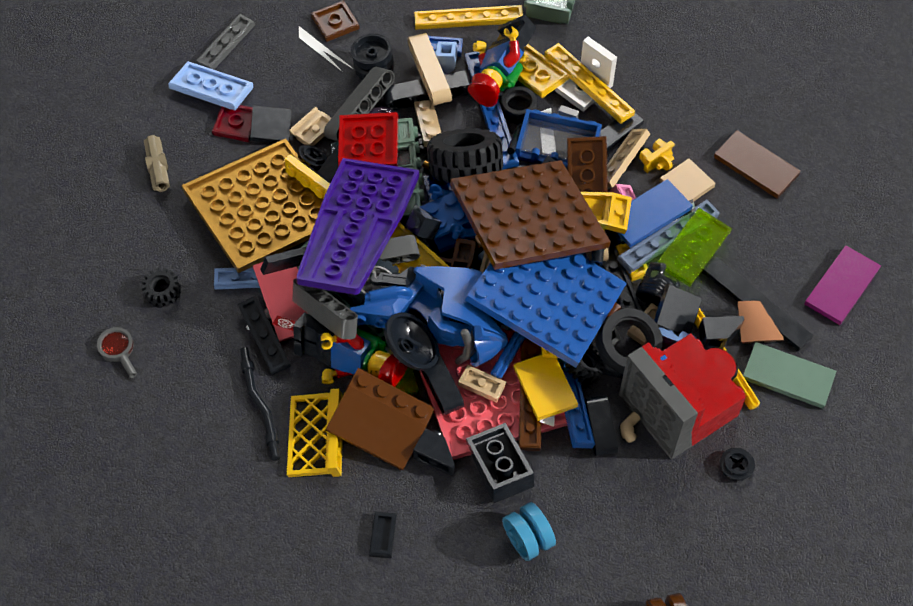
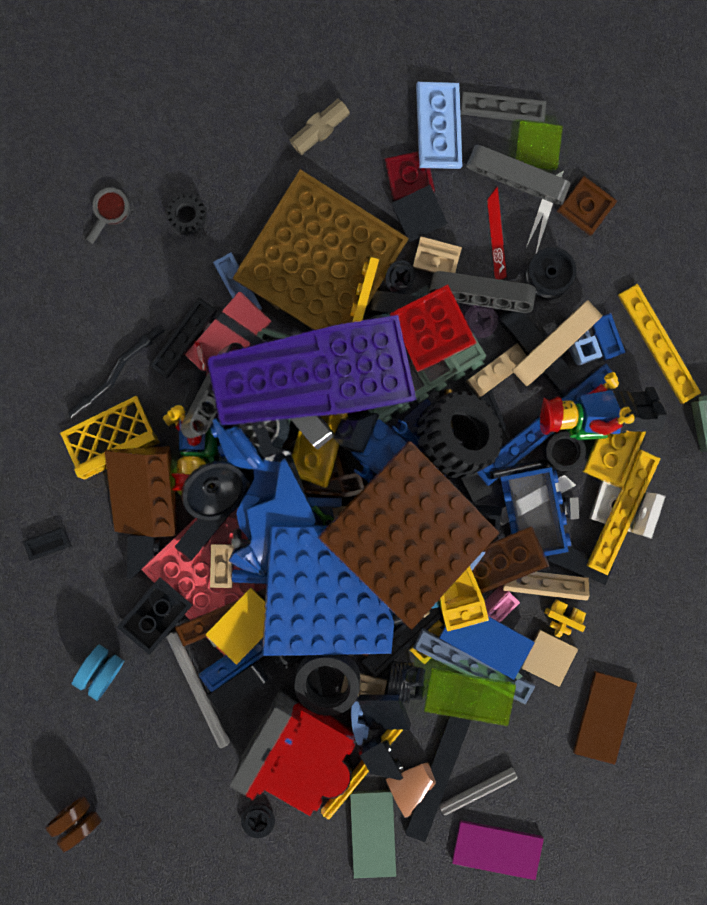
camera: 70 degrees right, 30 degrees up
(269, 32) = (539, 144): none -> clear neon green tile
(282, 51) = (518, 174): none -> dark grey beam
(318, 85) = (496, 235): none -> red sticker
(590, 462) = (198, 689): none -> light grey axle
(627, 428) = (247, 710): tan arm -> none
(783, 278) = (478, 791): none -> light grey axle

